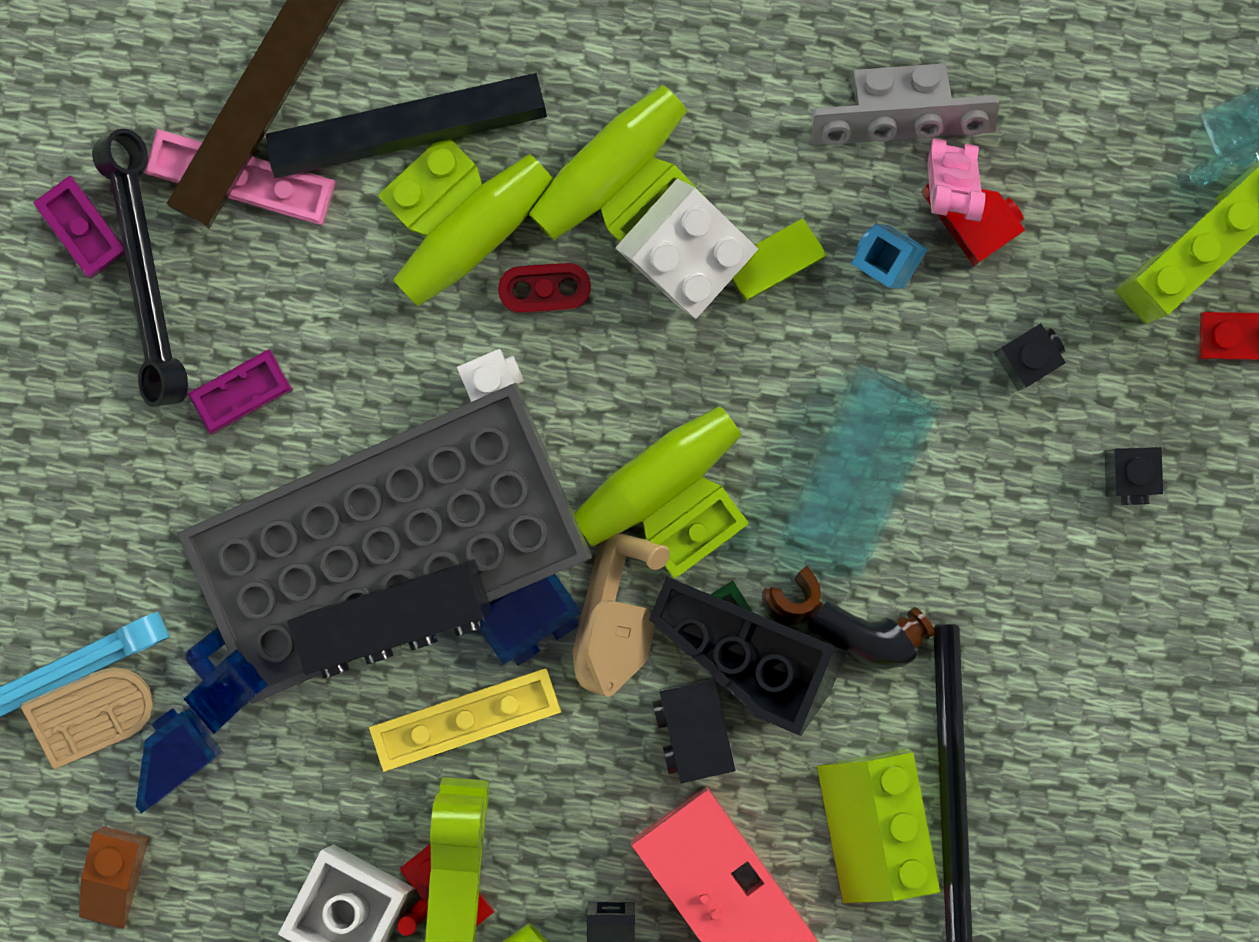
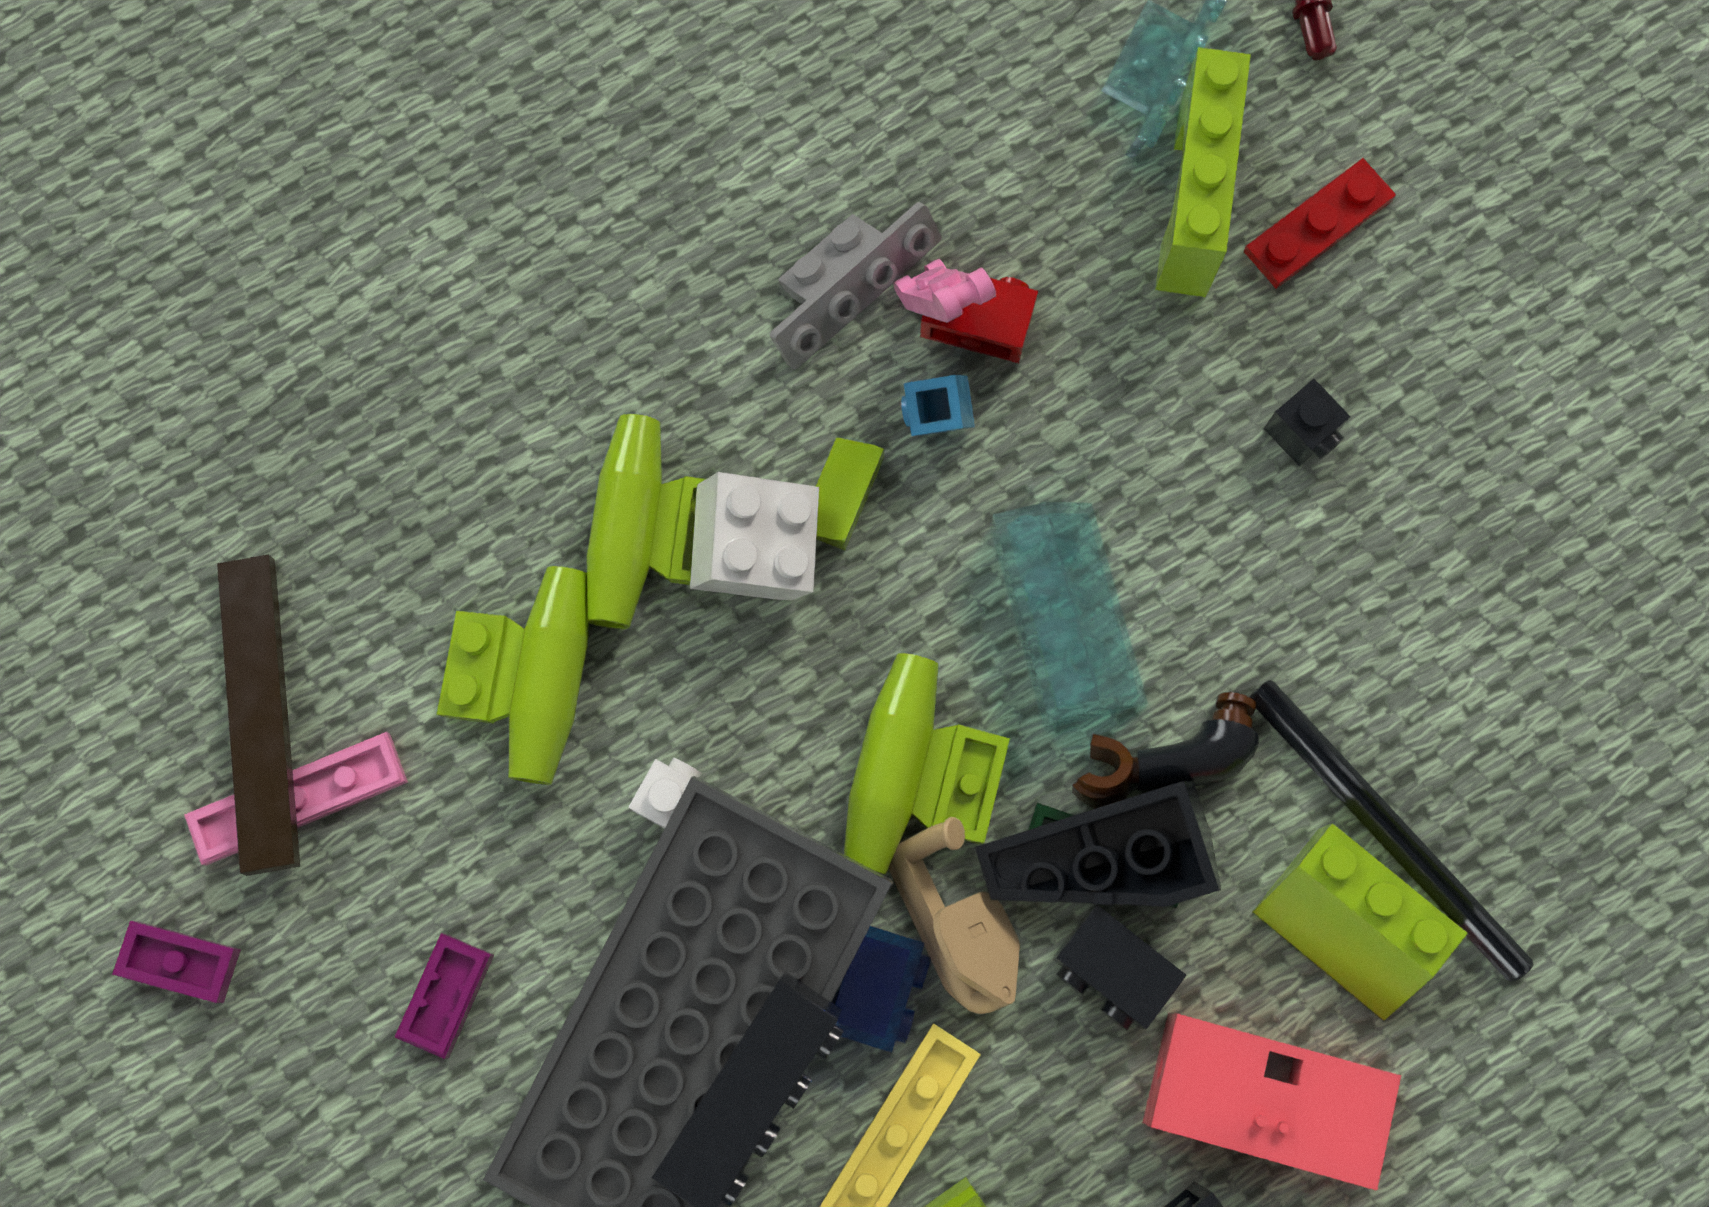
camera: 30 degrees left, 10 degrees down
(161, 377) = (356, 1041): black piece -> none
(405, 125) = (413, 633): black tile -> none
(544, 286) = (652, 674): dark red plate -> none
(1031, 356) = (1134, 395): black brick -> none

